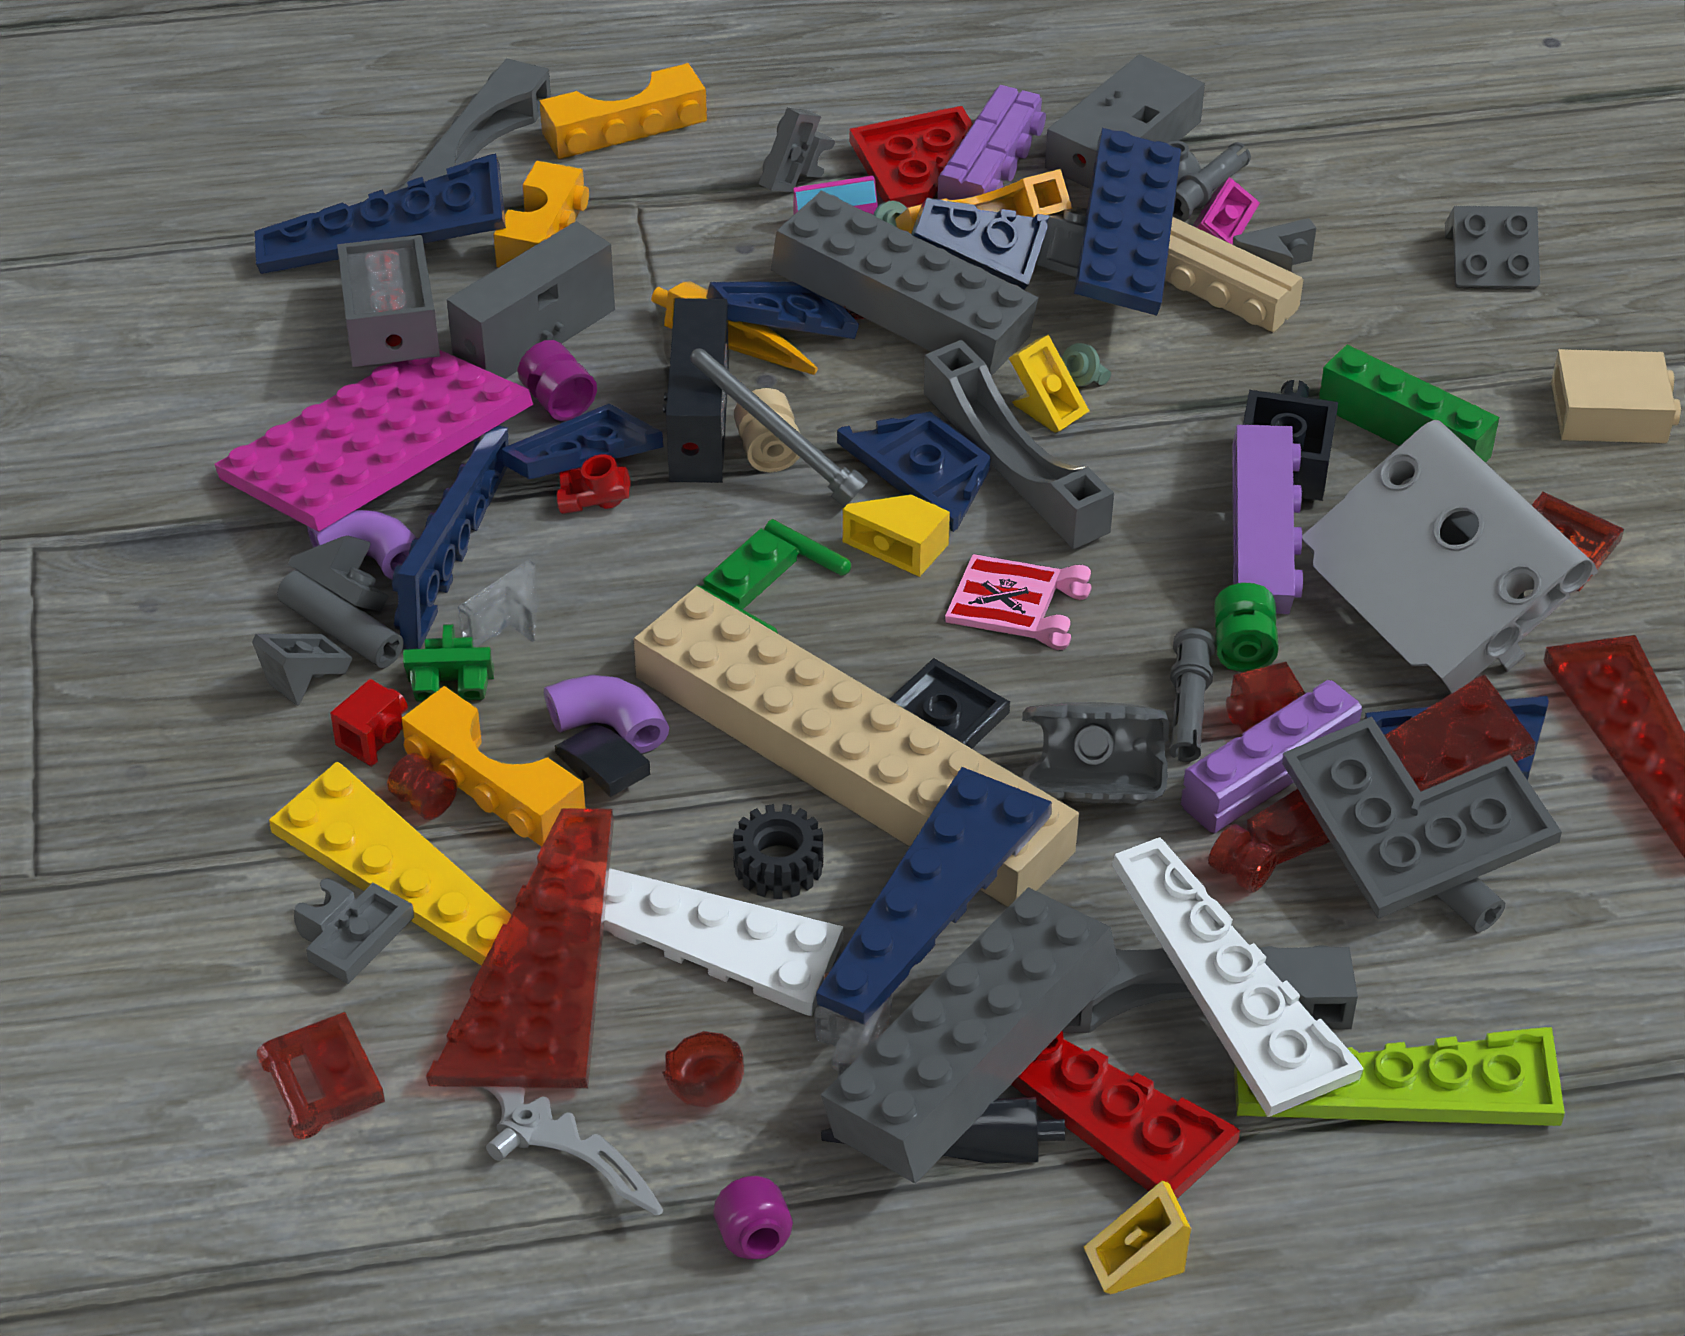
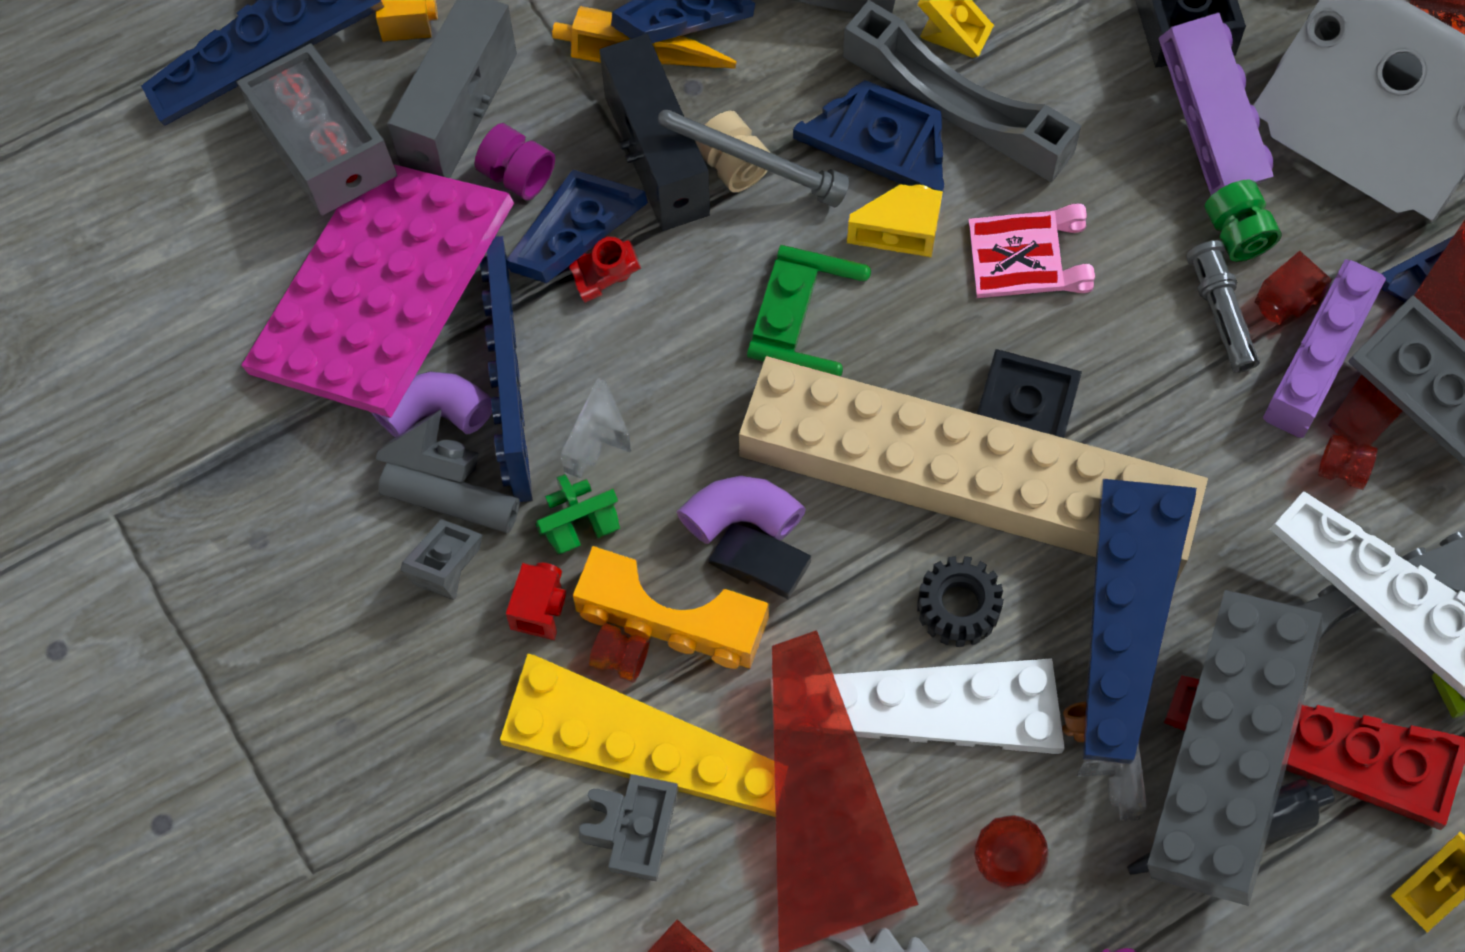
camera: 20 degrees left, 20 degrees up
(1100, 752) = (1190, 408): dark grey animal -> none

